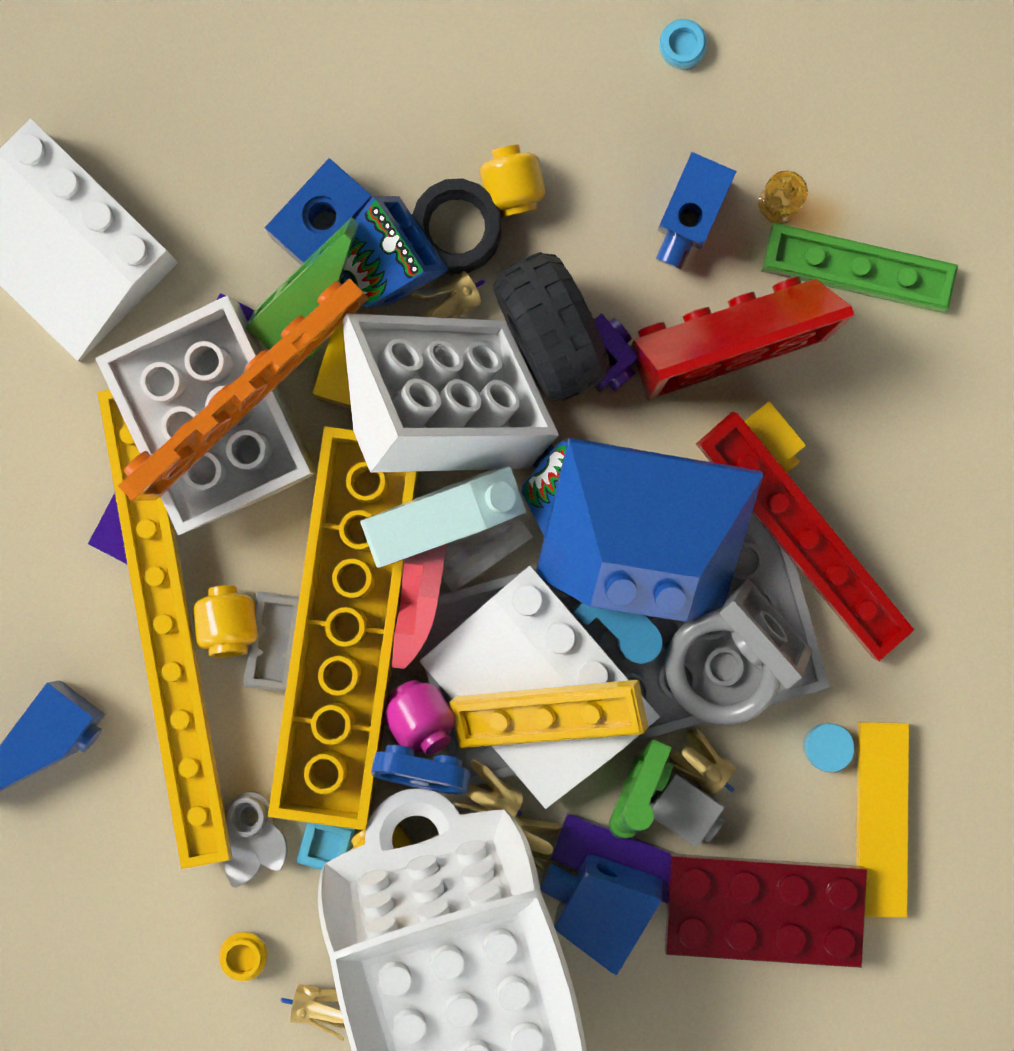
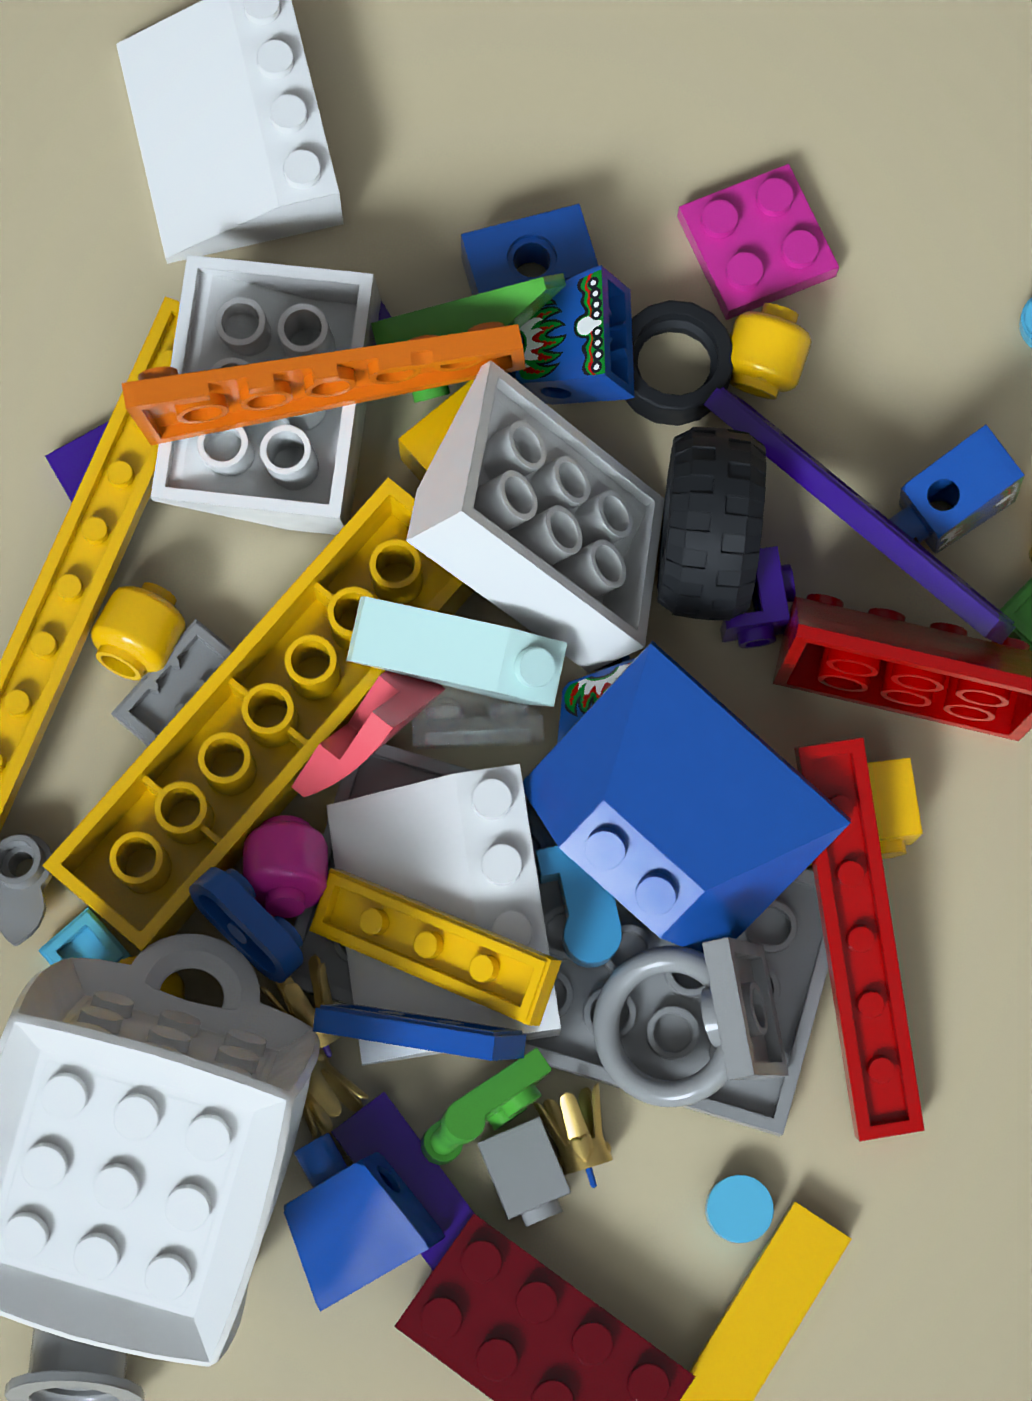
camera: 25 degrees right, 10 degrees down
(458, 106) = (757, 241): none -> dark pink plate
(462, 300) = (635, 440): pearl gold piece -> none
(575, 775) = (420, 1031): none -> blue tile
(644, 260) = (864, 517): none -> dark purple tile

